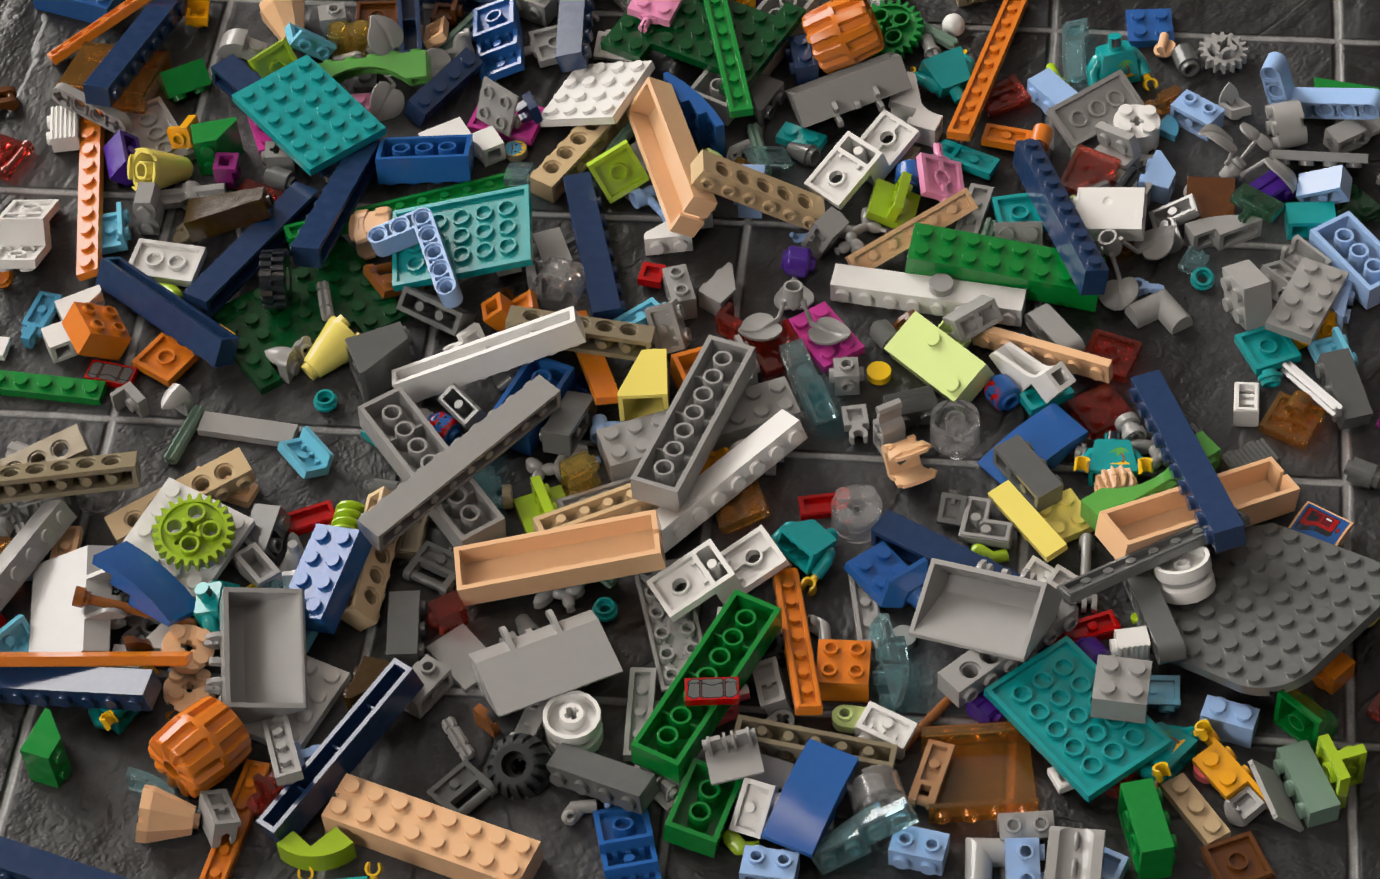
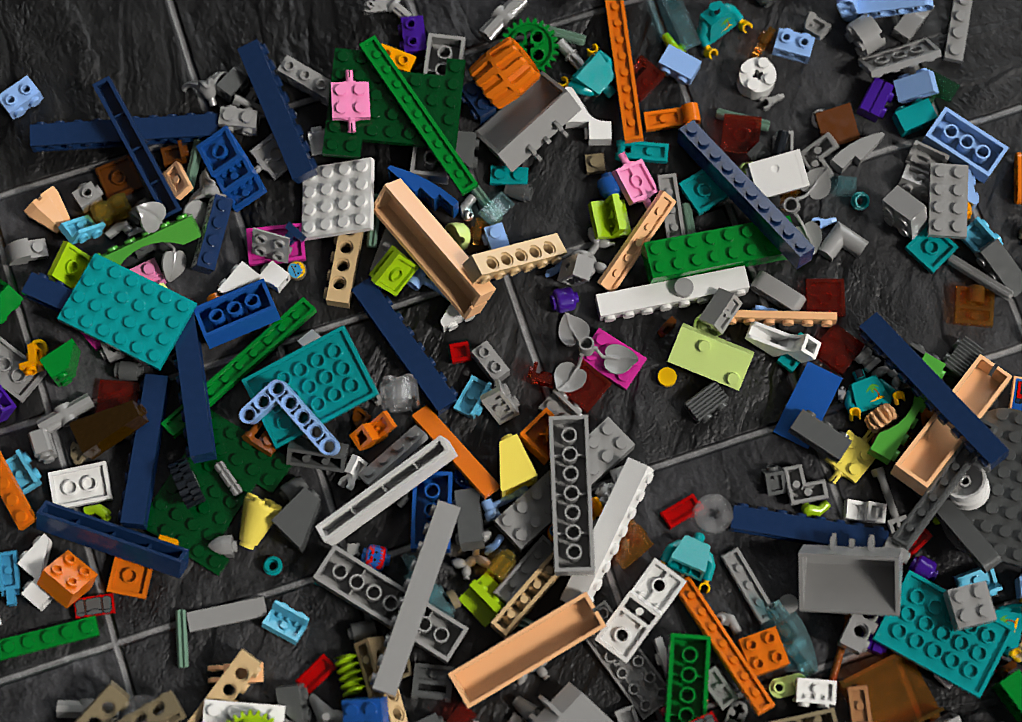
camera: 30 degrees left, 25 degrees up
(131, 397) = (127, 626): light grey bracket -> none
(157, 167) = (30, 406): light yellow cone -> none
(177, 398) = (161, 615): light grey plate -> none
(227, 169) = (83, 381): magenta brick -> none
(300, 345) = (232, 527): light grey plate -> none
(360, 225) = (230, 399): light nougat piece -> none
(461, 406) = (386, 537): dark grey brick -> none
(518, 173) = (312, 294): clear light blue slope -> none
(549, 244) = (377, 362): light grey brick -> none
(602, 336) = (471, 437): dark tan brick -> none
(605, 604) = (575, 663): teal plate -> none
(718, 290) = (520, 350): light grey slope -> none
(807, 383) = (623, 411): clear light blue slope -> none
(846, 376) = (648, 399): light grey brick -> none
(855, 421) = (670, 428): light grey plate -> none
(862, 159) = (570, 187): white bracket -> none
(882, 332) = (659, 343): dark grey brick -> none
(887, 577) = (761, 561): blue plate -> none
(889, 424) = (704, 433): light grey piece -> none
(911, 471) = (730, 457): light nougat piece -> none
(953, 24) = (573, 20): white piece -> none
(955, 428) = (758, 411): clear brick -> none
(1002, 392) = (764, 362): blue head -> none
(1025, 231) = (715, 215): light grey bracket -> none
(1027, 521) = (833, 473): light yellow tile -> none
(1079, 114) = (719, 69): light grey plate -> none
(1117, 143) = (749, 102): light grey bracket -> none
(1131, 643) = (952, 560): white brick -> none
(1161, 175) = (791, 117): light blue slope -> none
(1169, 128) = (777, 62): dark azure tile -> none
(1236, 167) = (832, 79): light grey plant -> none
(1246, 405) = (939, 313): white slope -> none
(1256, 204) = (876, 123): clear green plate -> none
(1270, 378) = (944, 275): teal plate -> none

